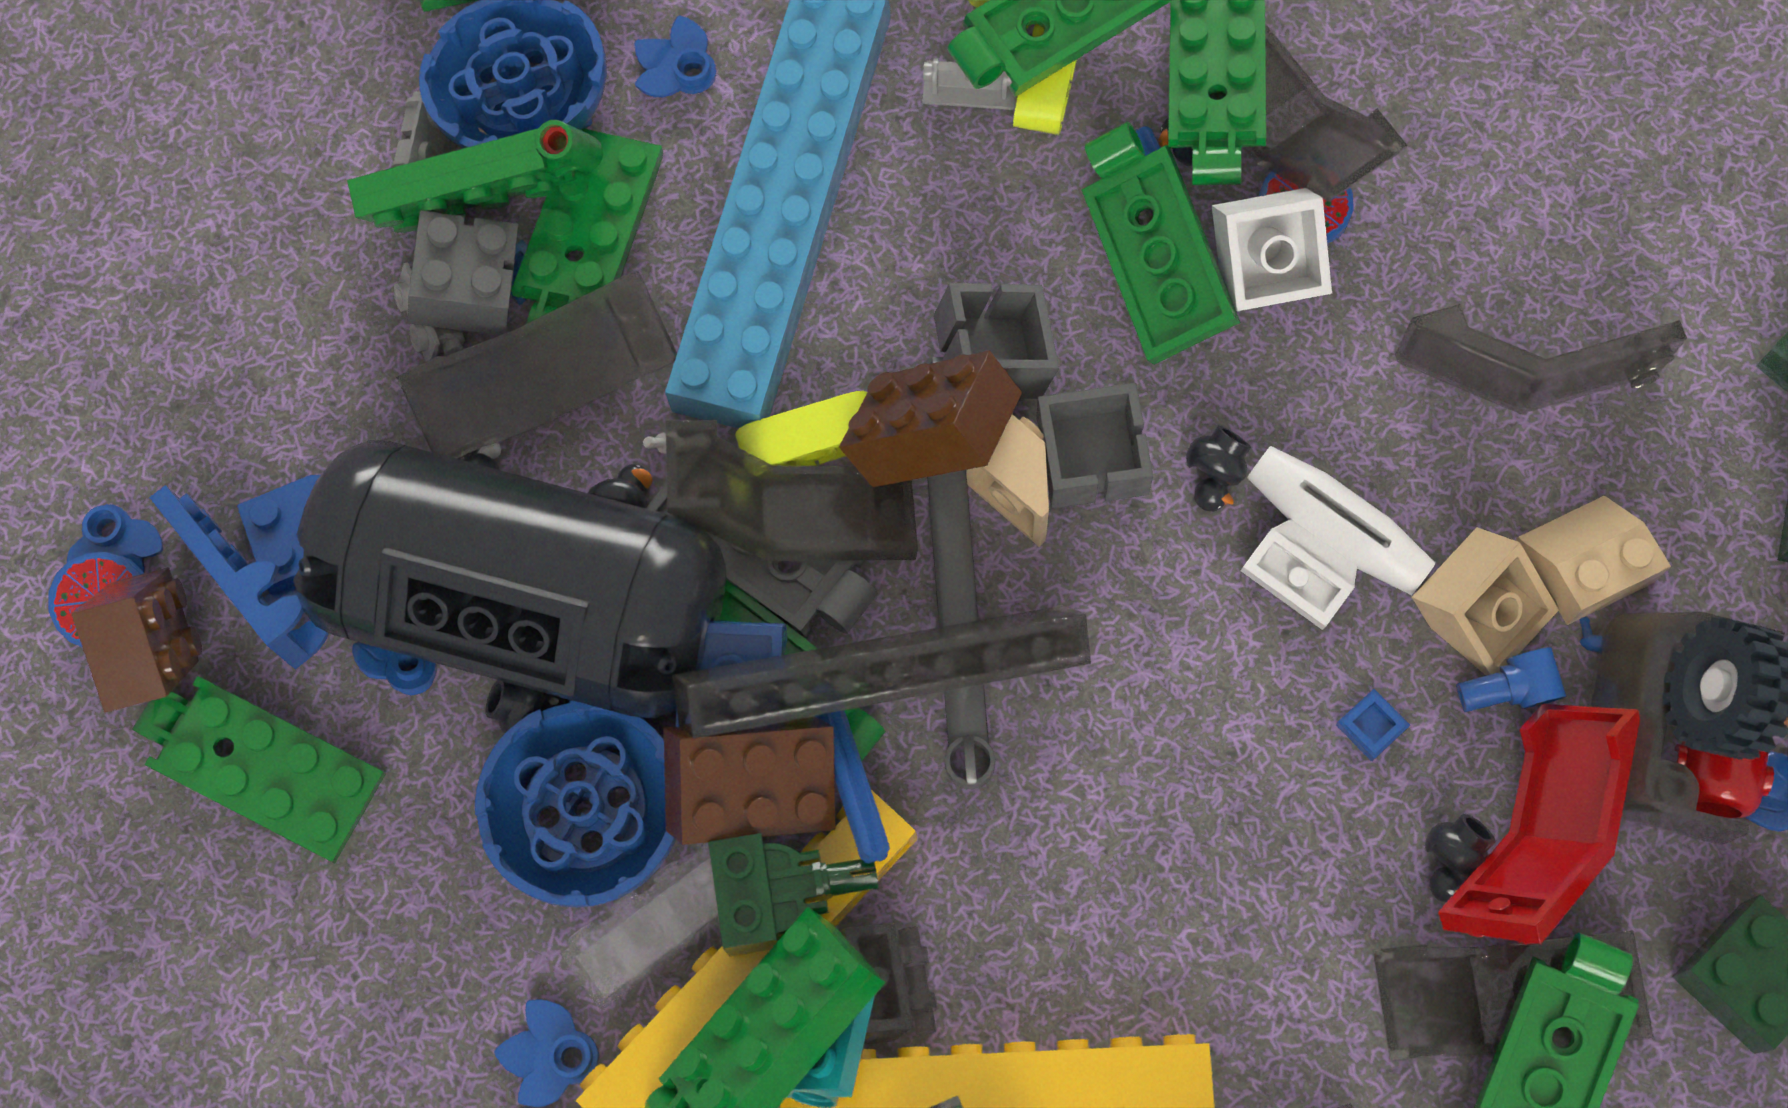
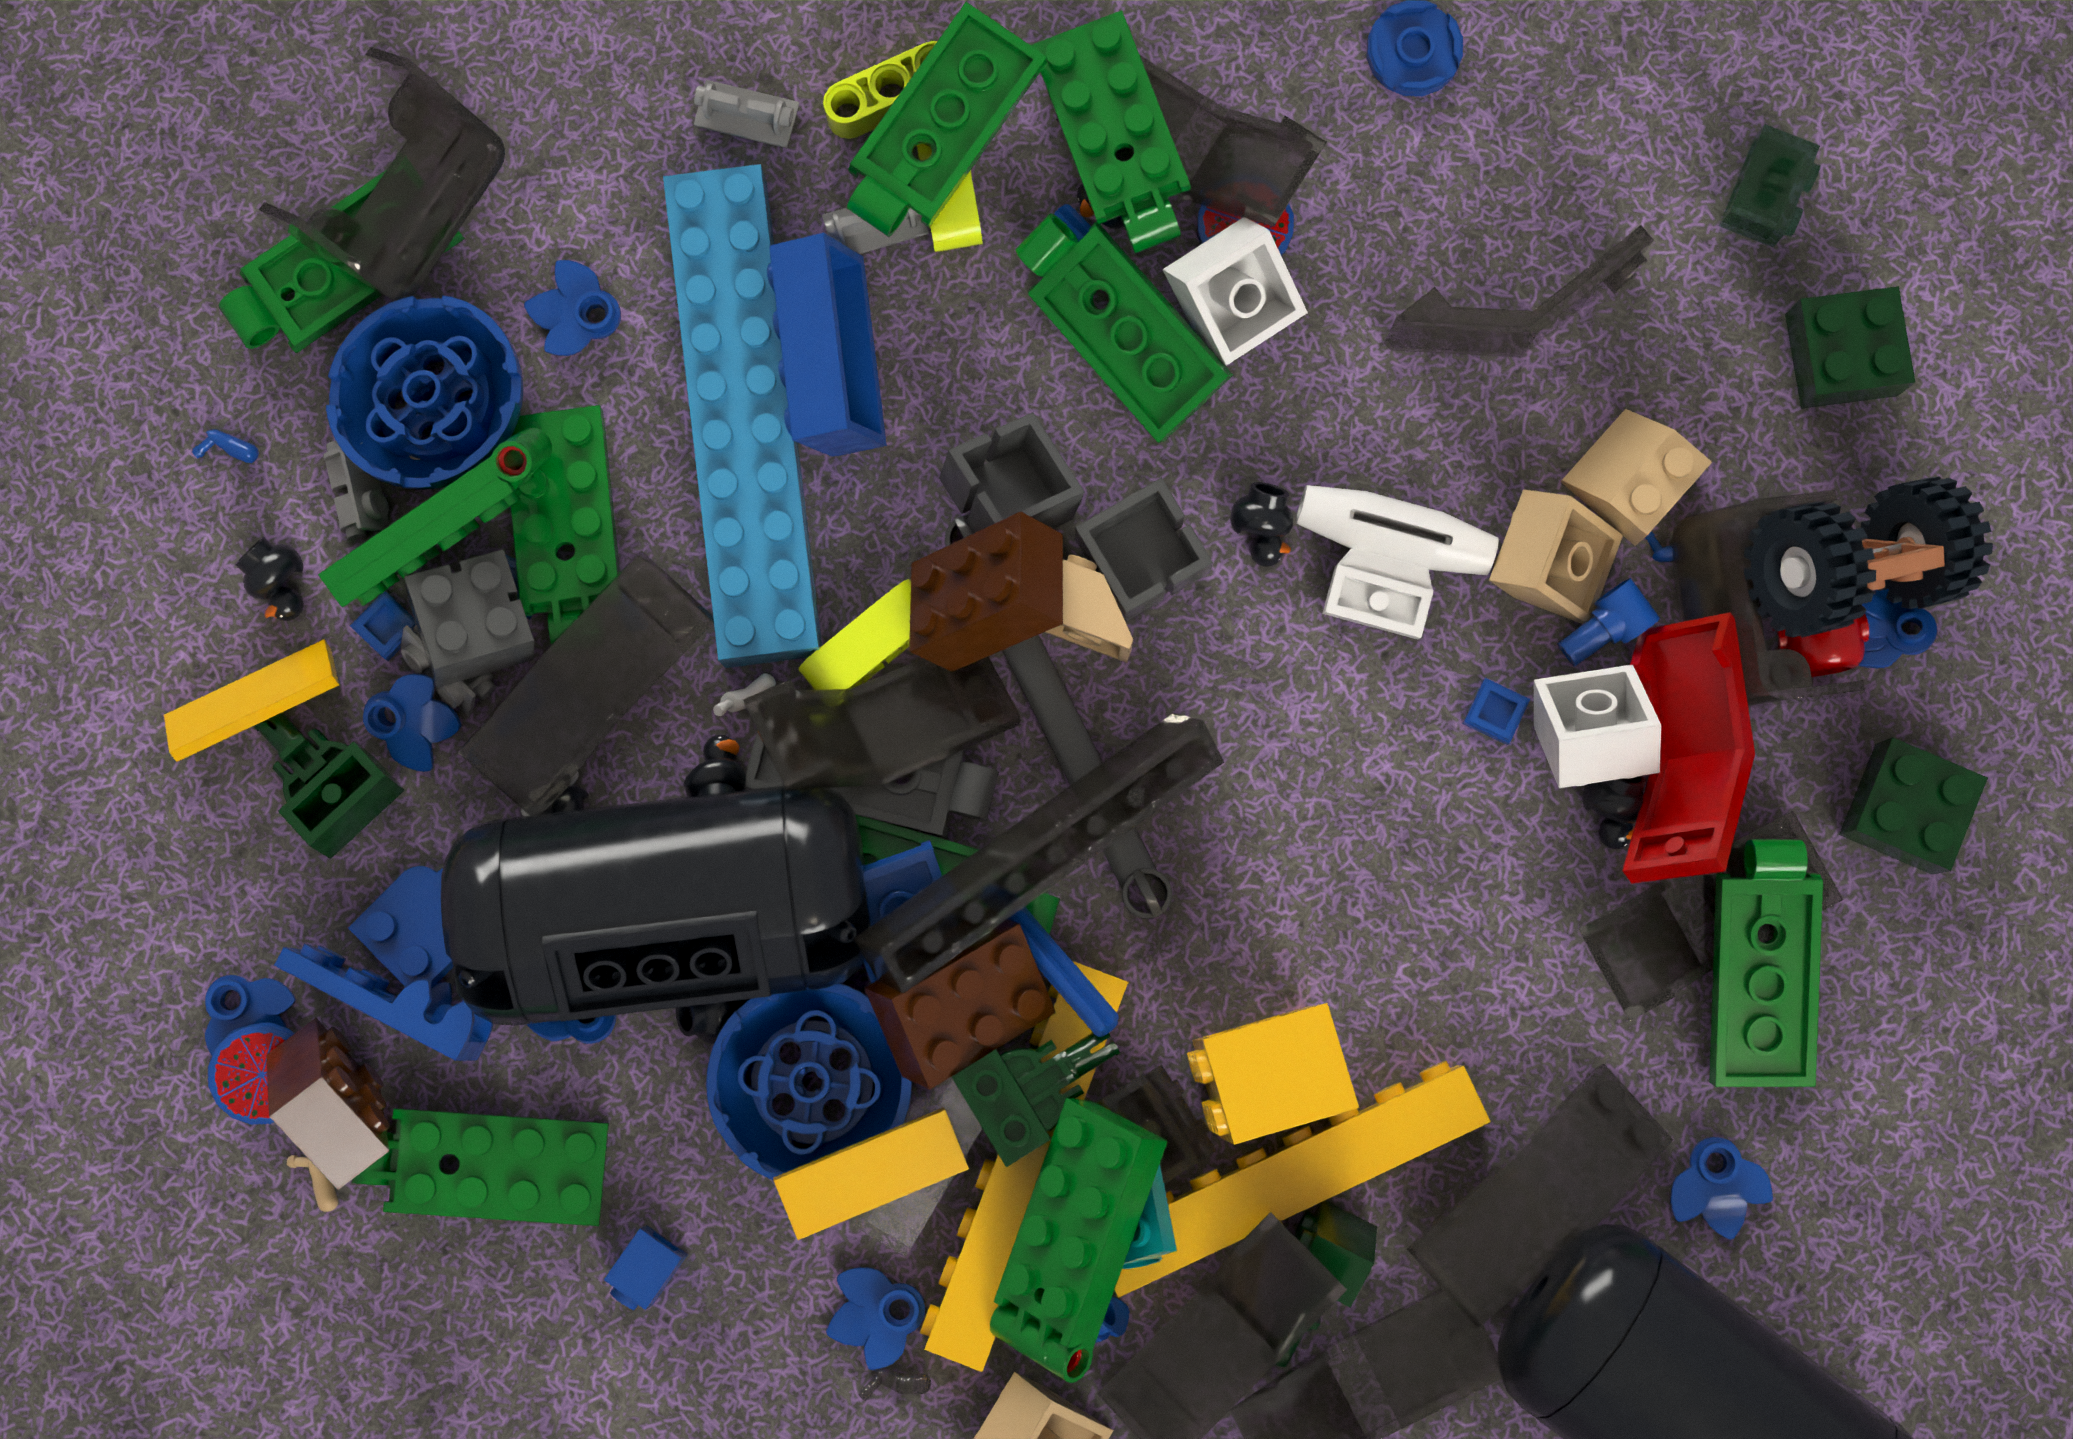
camera: 25 degrees left, 10 degrees up
(106, 725) = (323, 1188): none -> tan piece
(246, 278) = (250, 700): none -> yellow piece
(278, 378) = (331, 788): none -> dark green brick
(311, 175) = (265, 572): none -> black animal
(334, 66) = (231, 445): none -> blue piece
(354, 918) = (644, 1269): none -> blue brick
(380, 352) = (417, 722): none -> blue plate
(387, 259) = (383, 625): none -> blue tile
(597, 908) = (870, 1173): none -> yellow piece
(880, 162) = (826, 345): none -> blue piece
(1013, 961) = (1272, 1074): none -> yellow brick
(1465, 770) = (1597, 726): none -> white brick
(1511, 118) = (1411, 64): none -> blue tile

